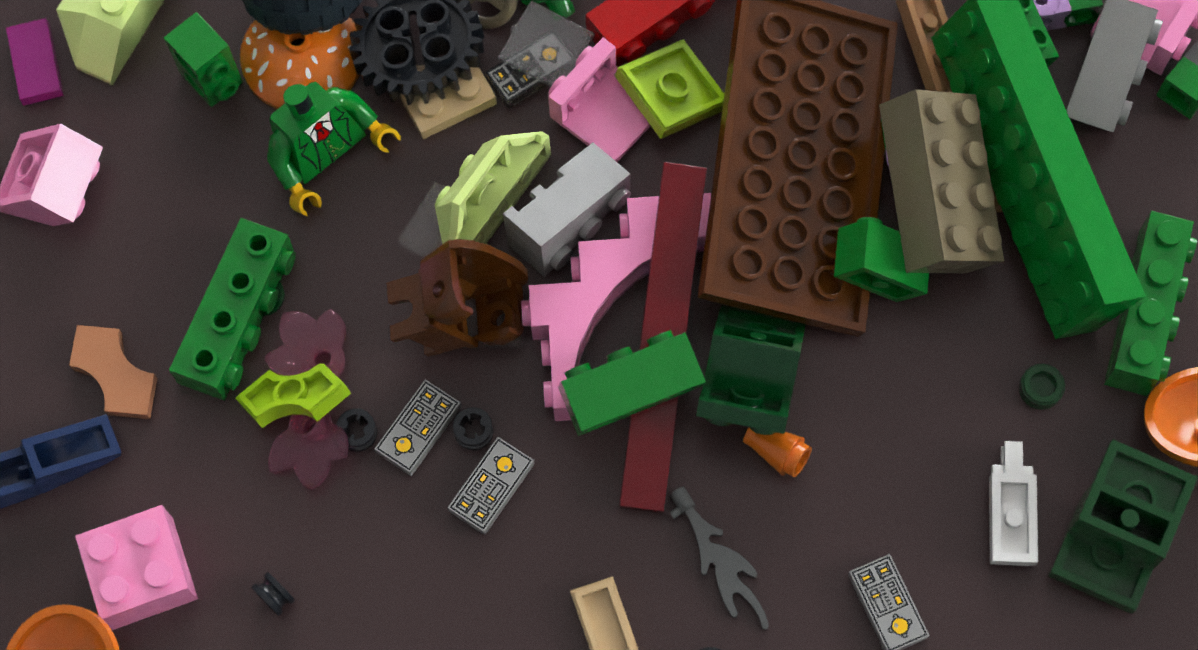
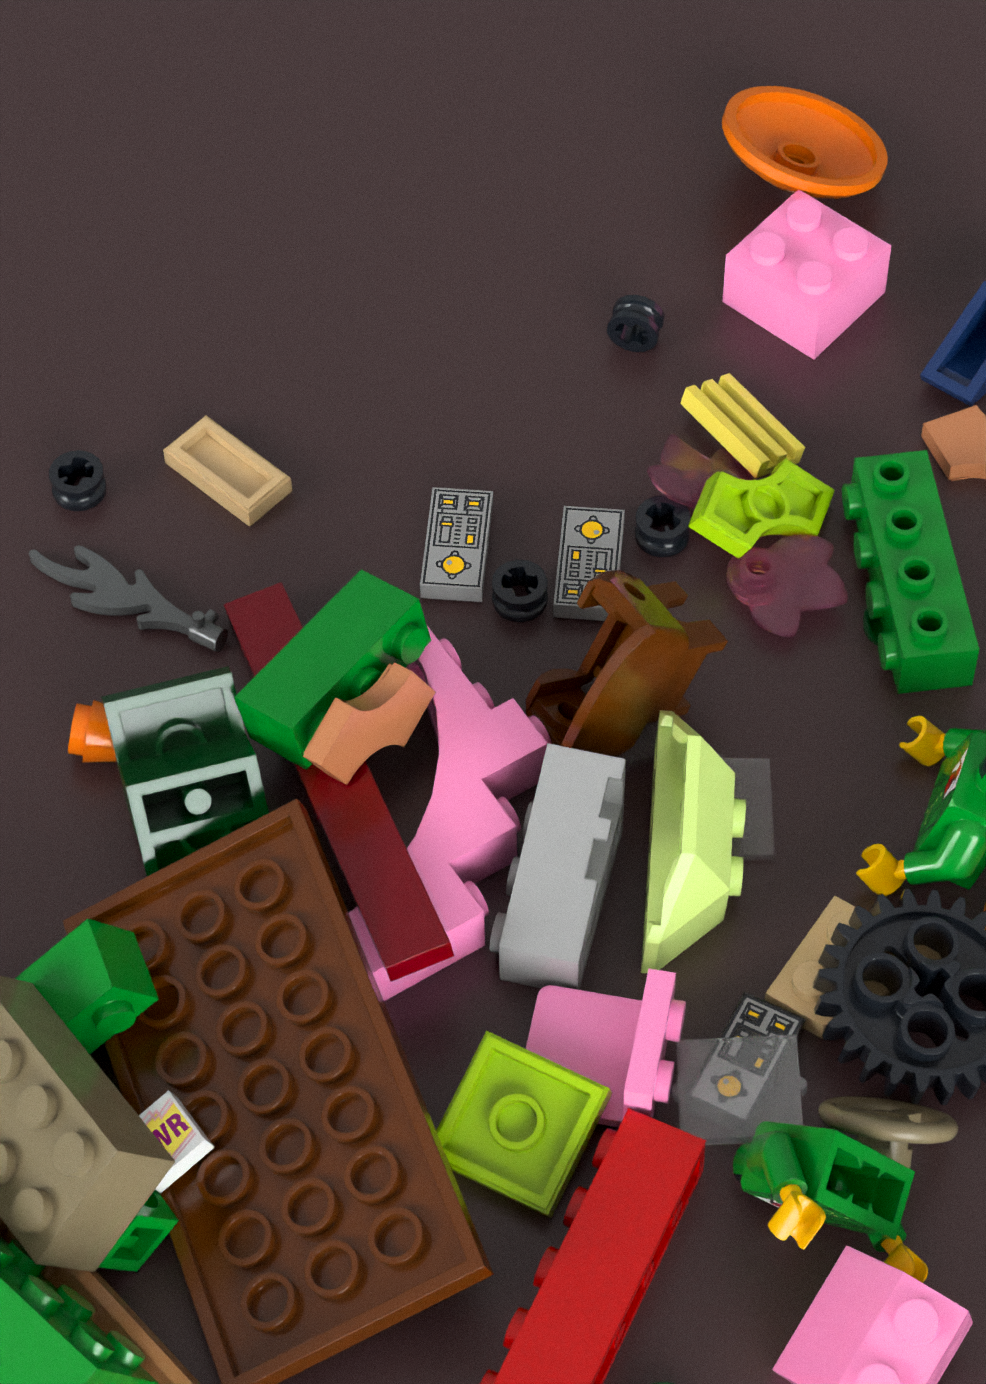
camera: 150 degrees right, 15 degrees down
(242, 467) = (742, 425): none -> light yellow tile
(633, 330) = (367, 723): none -> nougat tile
(867, 157) = (178, 1135): none -> tile

